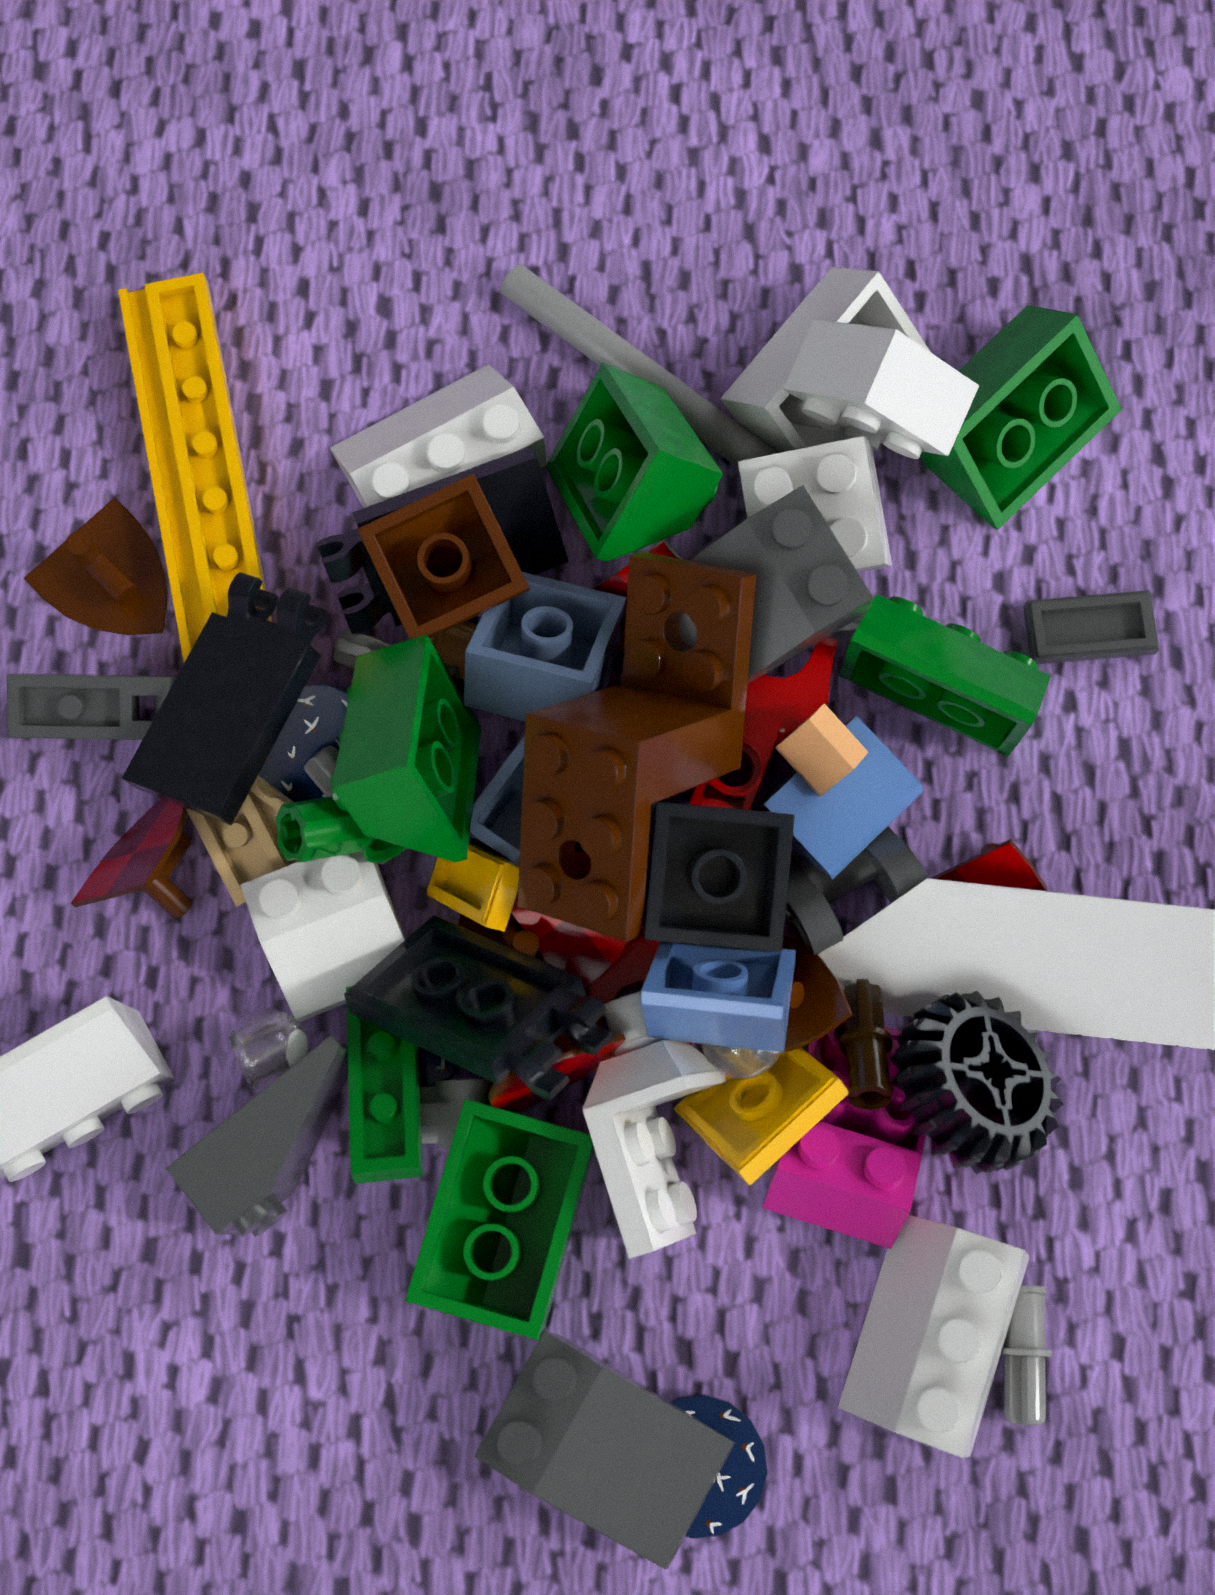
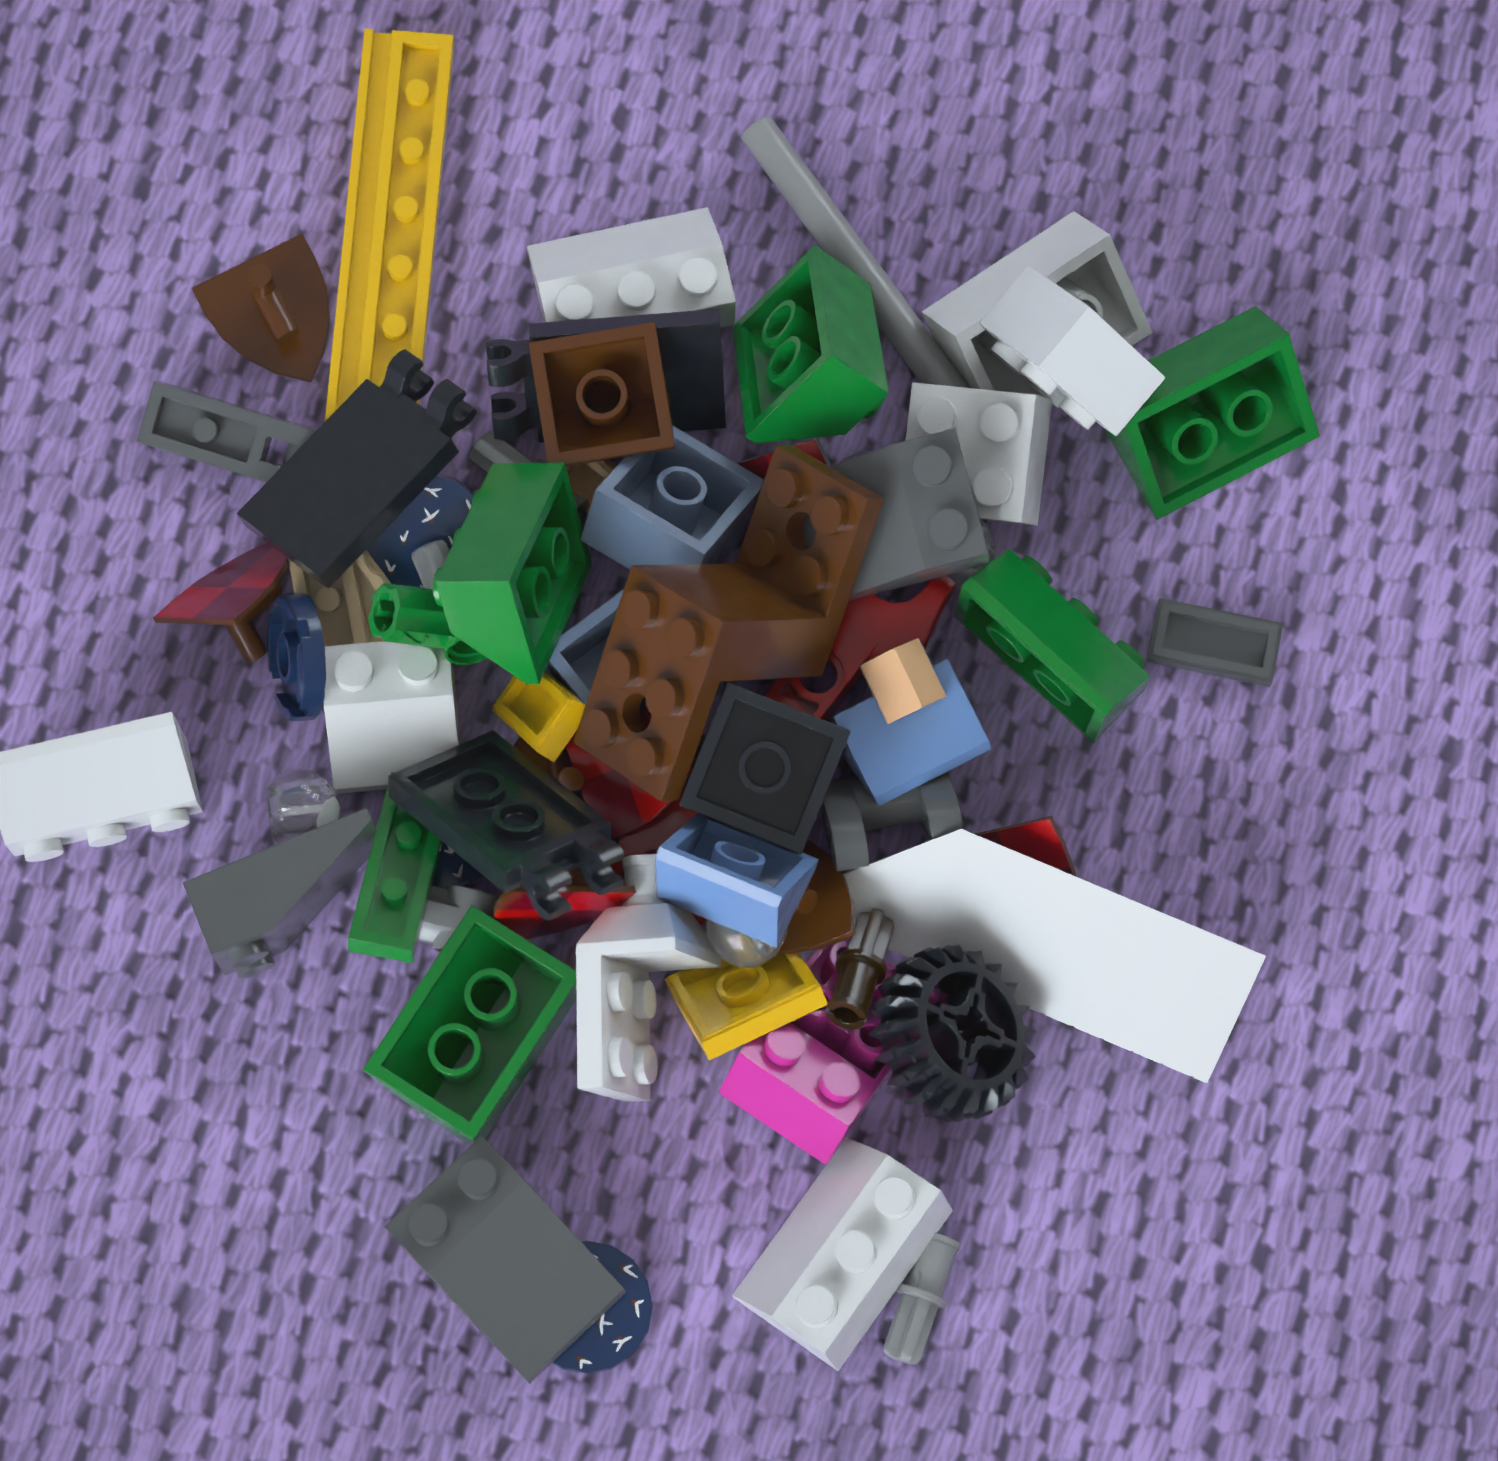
camera: 10 degrees right, 0 degrees up
(220, 900) = (297, 656): none -> dark blue tile

